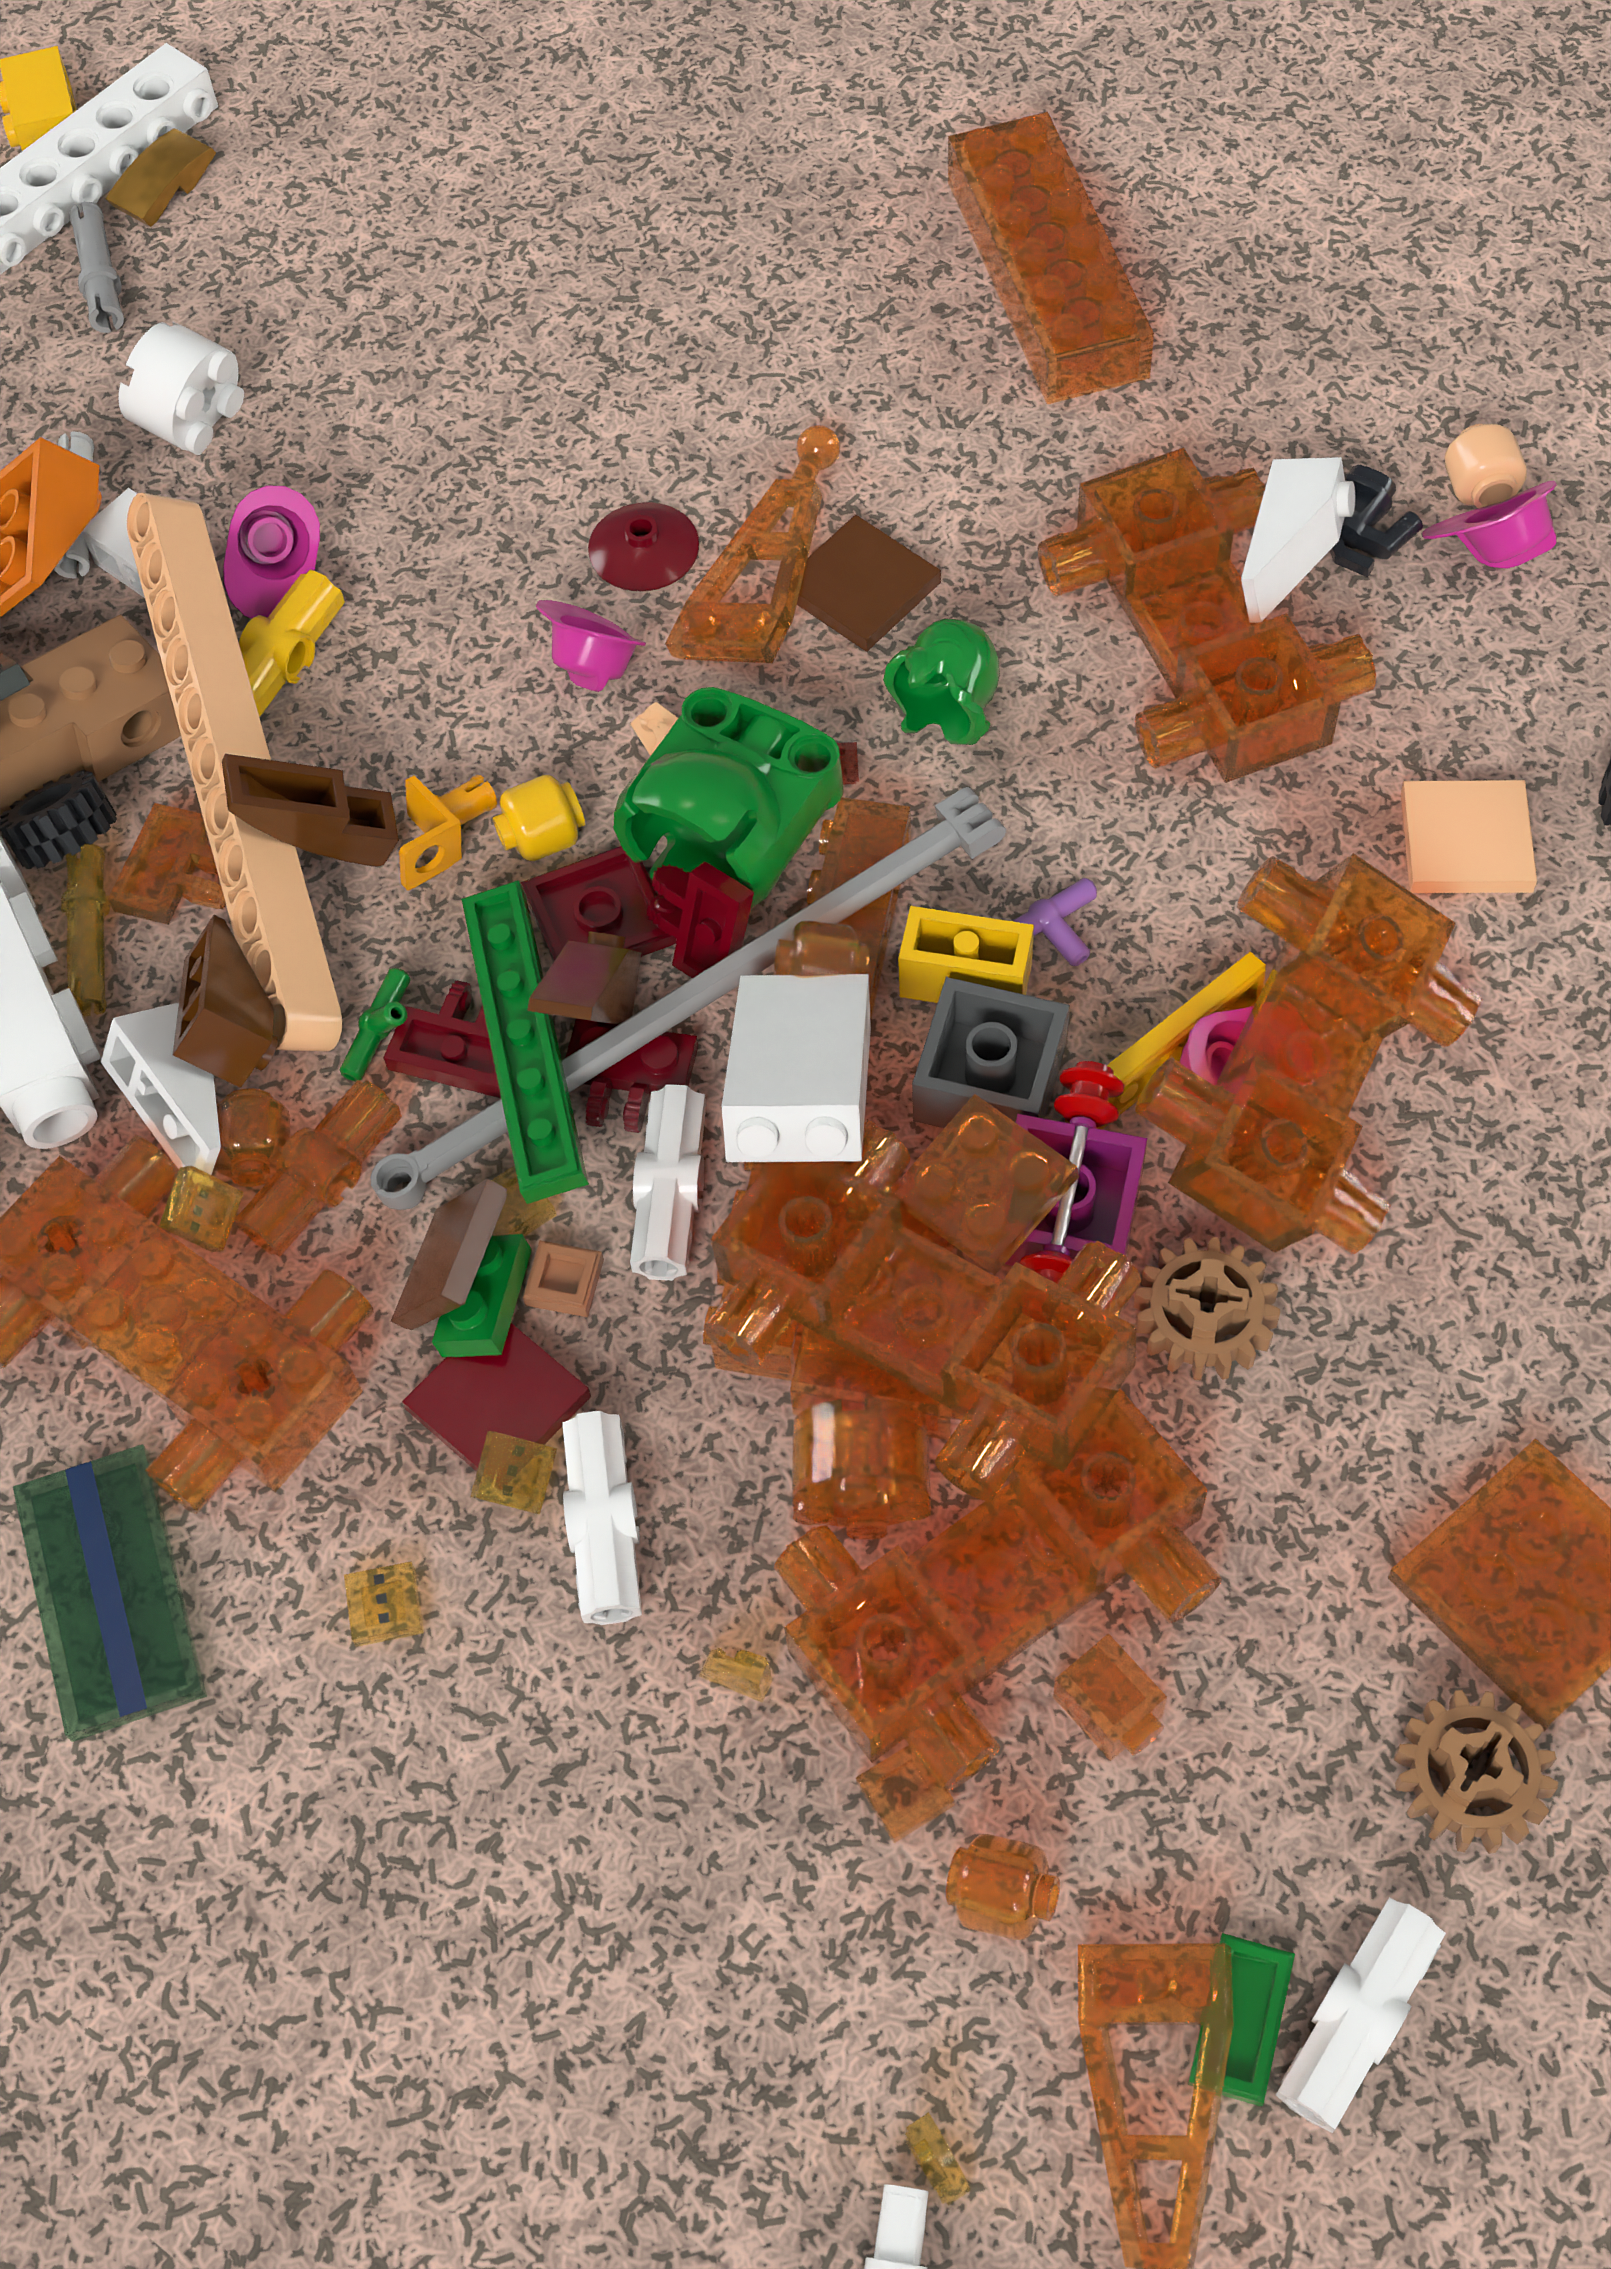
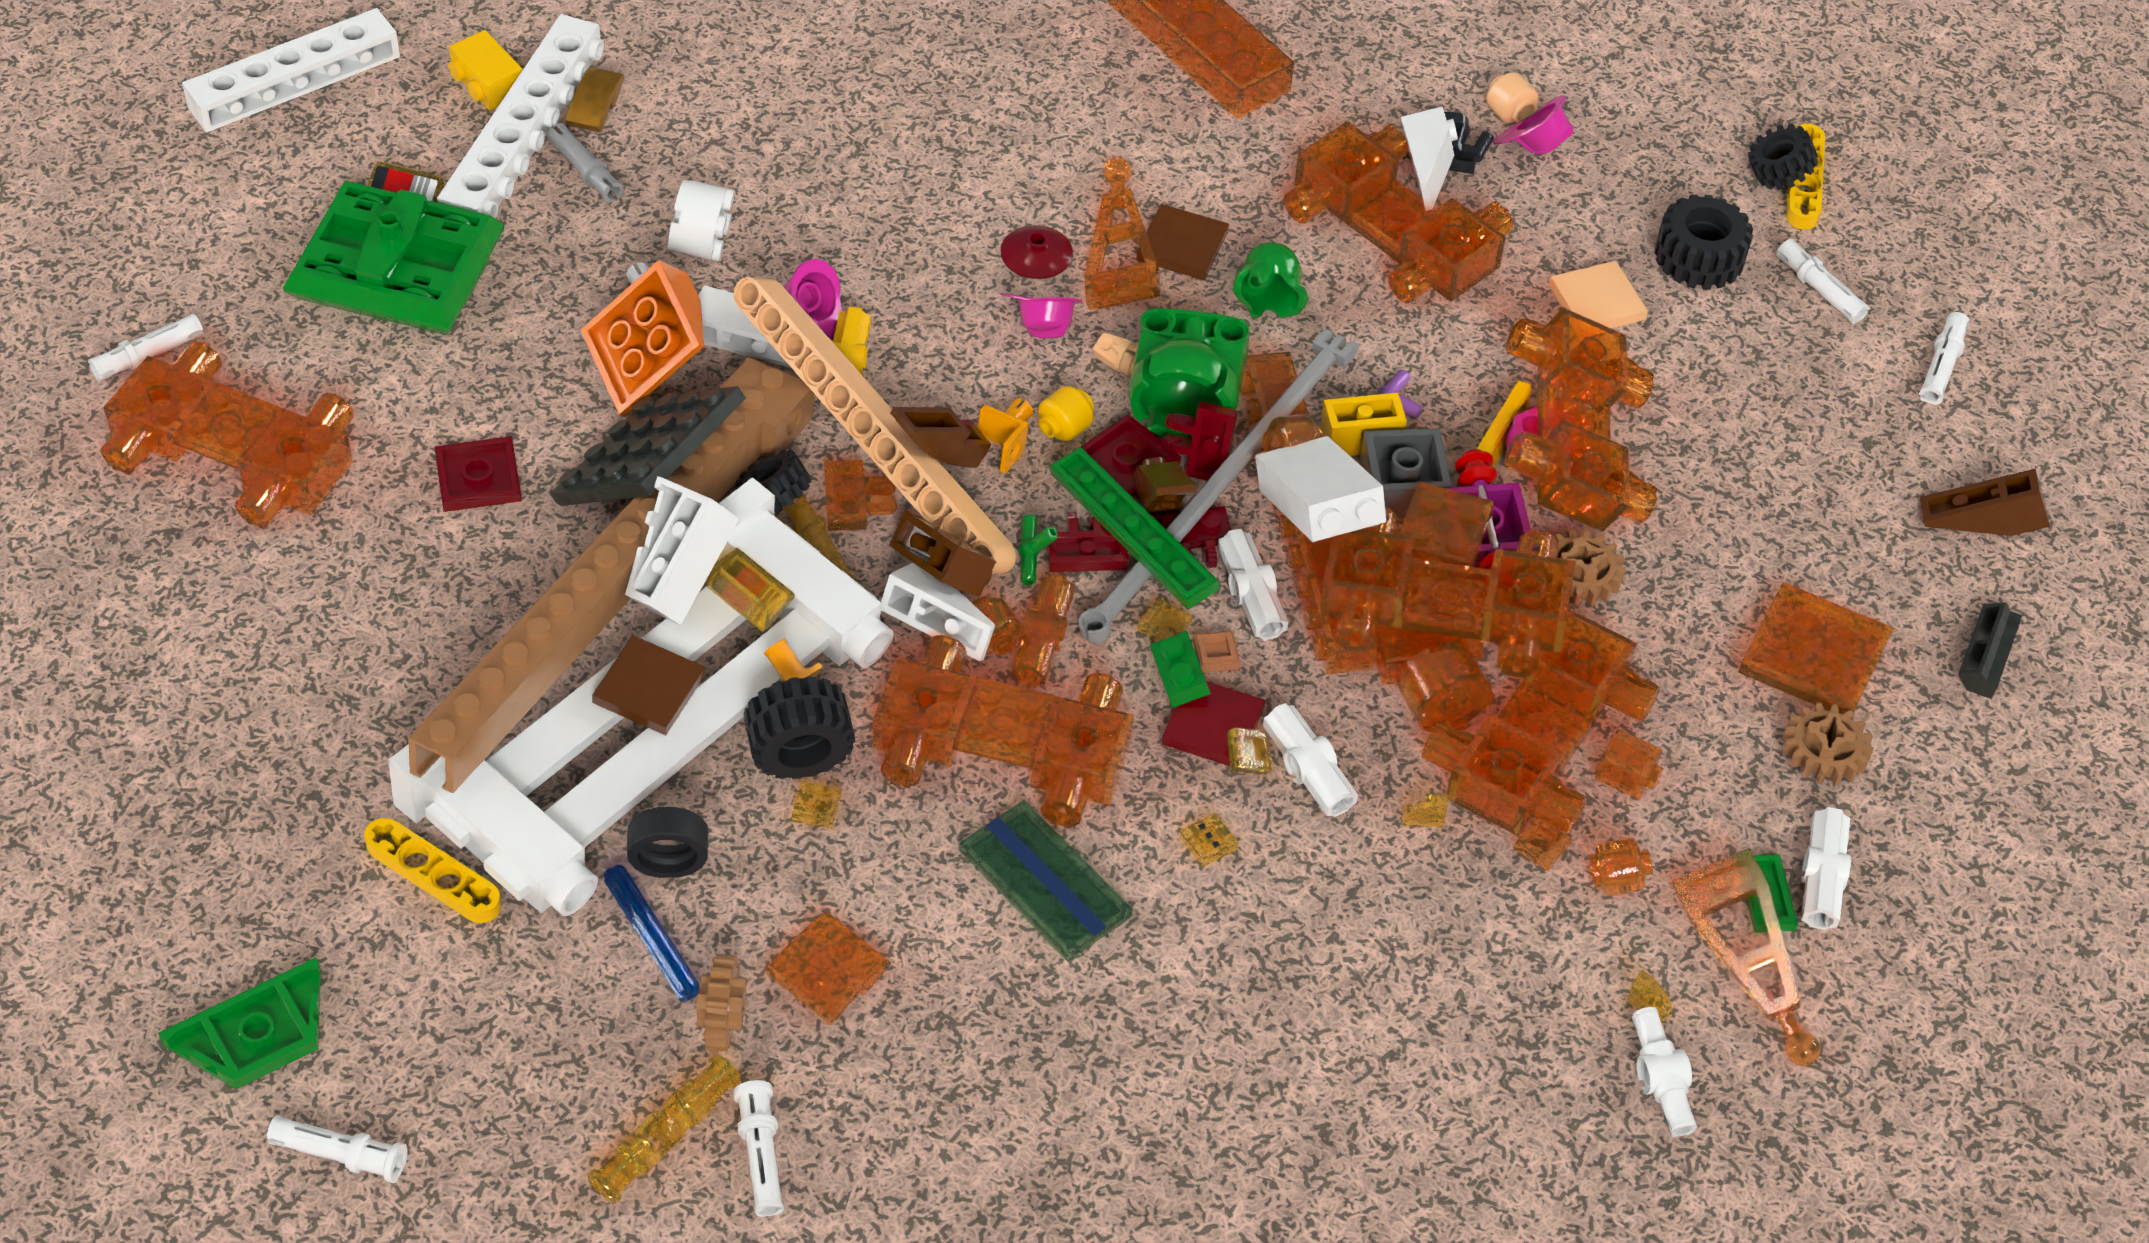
camera: 30 degrees left, 10 degrees down
(201, 1209) = (994, 662): clear yellow tile -> none
(450, 1255) = (1155, 649): reddish brown tile -> none

